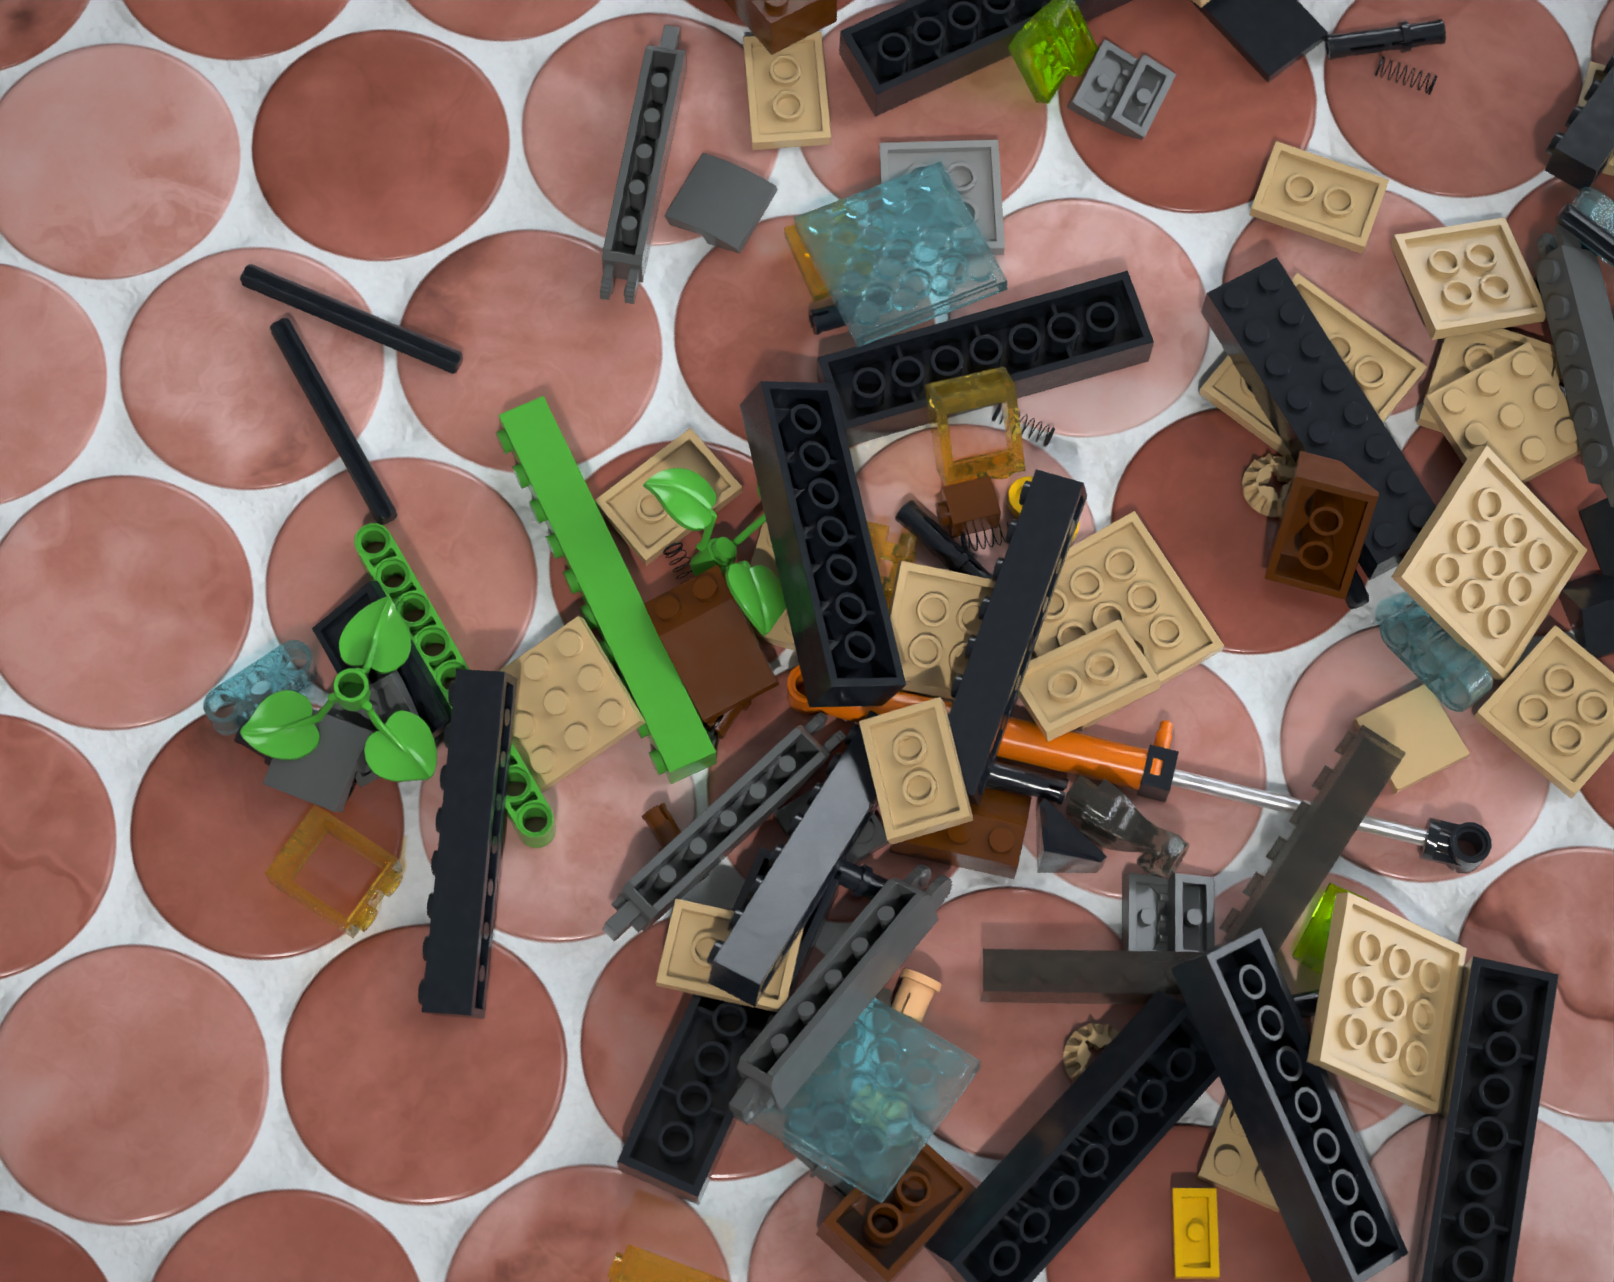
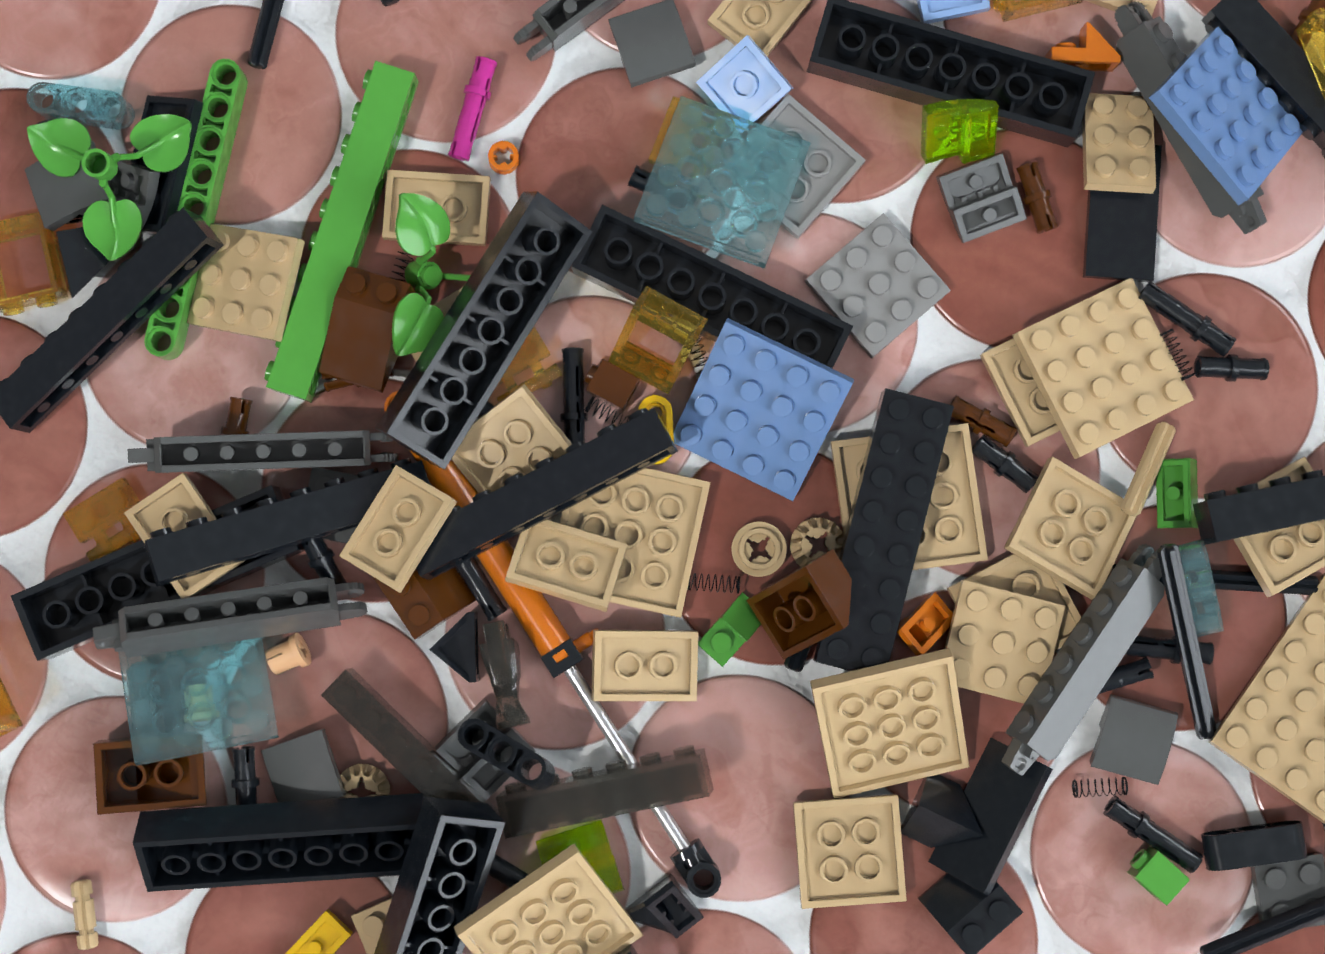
camera: 45 degrees right, 15 degrees up
(389, 813) = (77, 258): none -> black slope
(611, 374) = (469, 119): none -> dark pink pin
(620, 1026) = (101, 512): none -> clear yellow plate
(674, 400) = (503, 147): none -> orange bush
(834, 162) = (745, 82): none -> light blue plate
(978, 1137) = (245, 775): none -> black pin
(1025, 1081) = (304, 769): none -> dark grey slope
(1107, 228) = (877, 285): none -> light grey plate
(1120, 406) = (761, 409): none -> medium blue plate
(1167, 50) = (1037, 197): none -> reddish brown pin
(1177, 881) = (492, 746): none -> black beam
(1234, 712) = (644, 665): none -> tan plate
(1238, 579) = (737, 583): none -> black piece
(1242, 520) = (775, 547): none -> tan gear
(1275, 622) = (730, 631): none -> bright green slope
(1329, 259) = (982, 421): none -> reddish brown pin
(1360, 133) = (1102, 368): none -> tan plate
(1360, 280) = (1004, 464): none -> black pin
(1420, 729) = (742, 778): tan tile -> none
(1432, 463) = (925, 624): none -> orange slope
(1436, 657) = (802, 754): clear light blue beam -> none
(1460, 45) = (1231, 367): none -> black pin
(1462, 903) = (666, 908): none -> black slope
(1479, 180) = (1148, 469): none -> tan axle
(1520, 182) = (1177, 493): none -> bright green slope

